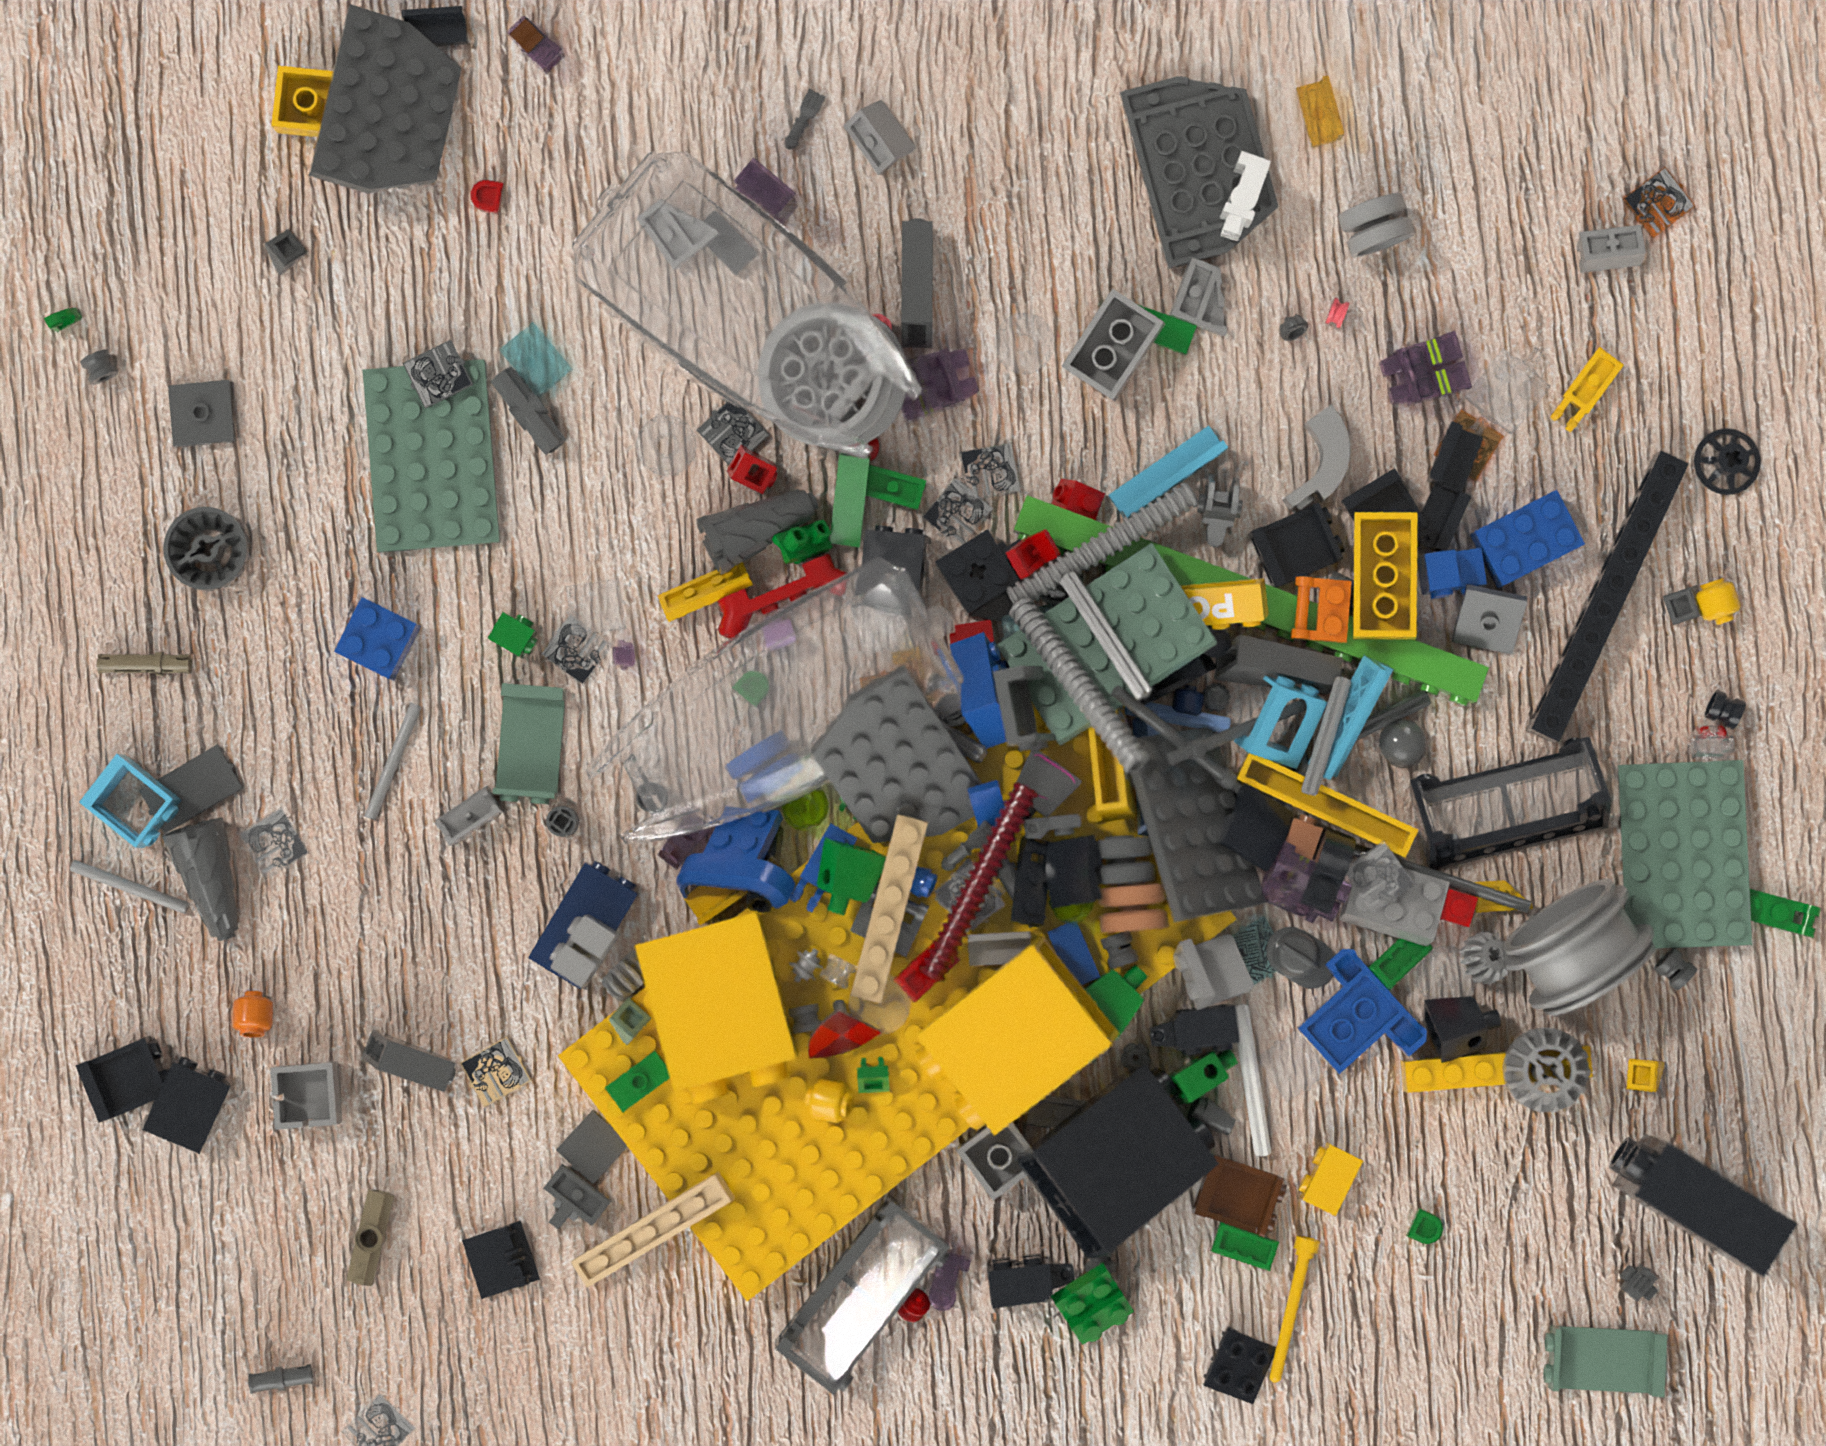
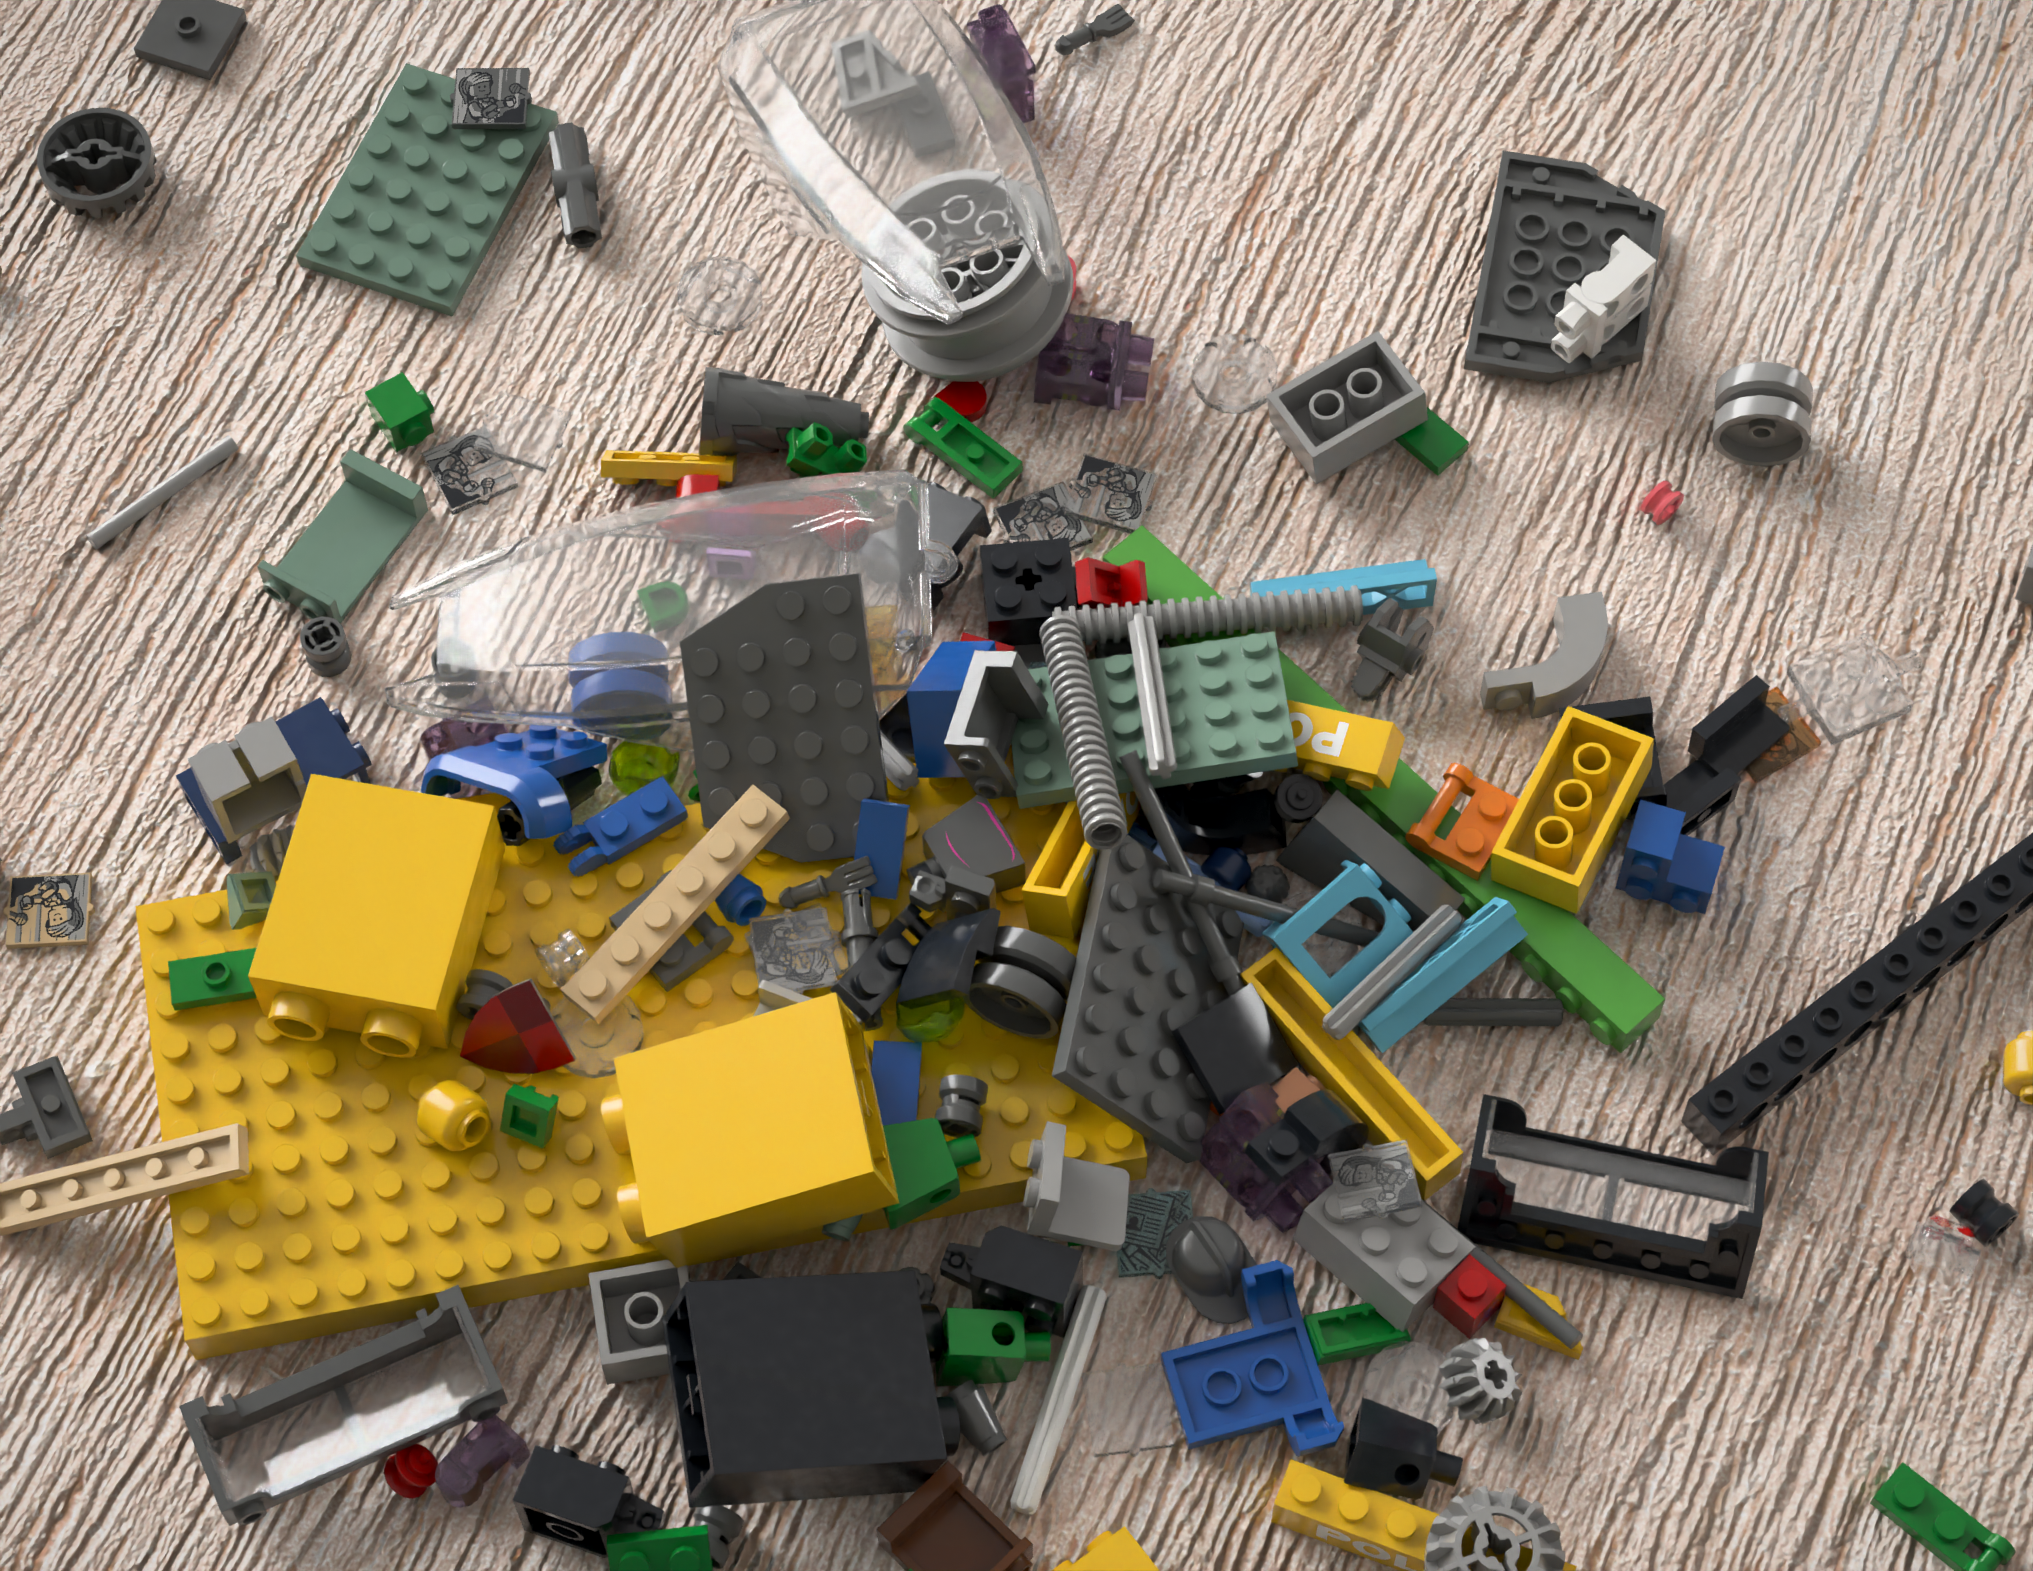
camera: 25 degrees right, 25 degrees down
(377, 638) = (233, 343): blue brick -> none
(468, 816) = (213, 594): light grey hinge -> none
(535, 359) = (618, 142): clear light blue plate -> none
(592, 1147) = (111, 1062): dark grey piece -> none
(624, 654) = (523, 494): clear purple plate -> none
(731, 428) = (810, 318): piece -> none
(758, 480) = (807, 343): red brick -> none
(806, 965) = (525, 932): light grey wheel -> none
(848, 873) = (646, 836): green torso -> none
(849, 500) = (918, 426): green tile -> none
(879, 136) = (1175, 80): light grey panel -> none
(912, 979) = (681, 1011): red plate -> none
(917, 283) = (1131, 246): dark grey slope -> none
(977, 885) = (813, 918): dark red piece -> none
(1078, 498) = (1212, 565): red bracket -> none
(1133, 907) = (1006, 1047): nougat wheel -> none
(1200, 297) = (1490, 413): light grey wing -> none
(1293, 327) = (1595, 497): dark grey piece -> none
(1297, 545) = (1482, 739): black panel -> none
(1320, 112) = (1749, 279): clear yellow panel -> none
(1403, 743) = (1498, 1056): dark grey hair -> none
(1416, 372) = (1750, 617): clear purple hips -> none
(1489, 619) = (1695, 944): plate -> none
(1527, 539) = (1795, 871): blue brick -> none
(1579, 947) = (1621, 1399): light grey wheel -> none
(1588, 386) = (1963, 730): yellow hinge -> none
(1675, 968) = (1756, 1531): dark grey wheel -> none
(1682, 605) = (1980, 1054): dark grey slope -> none
(1686, 852) = (1839, 1383): sand green plate -> none

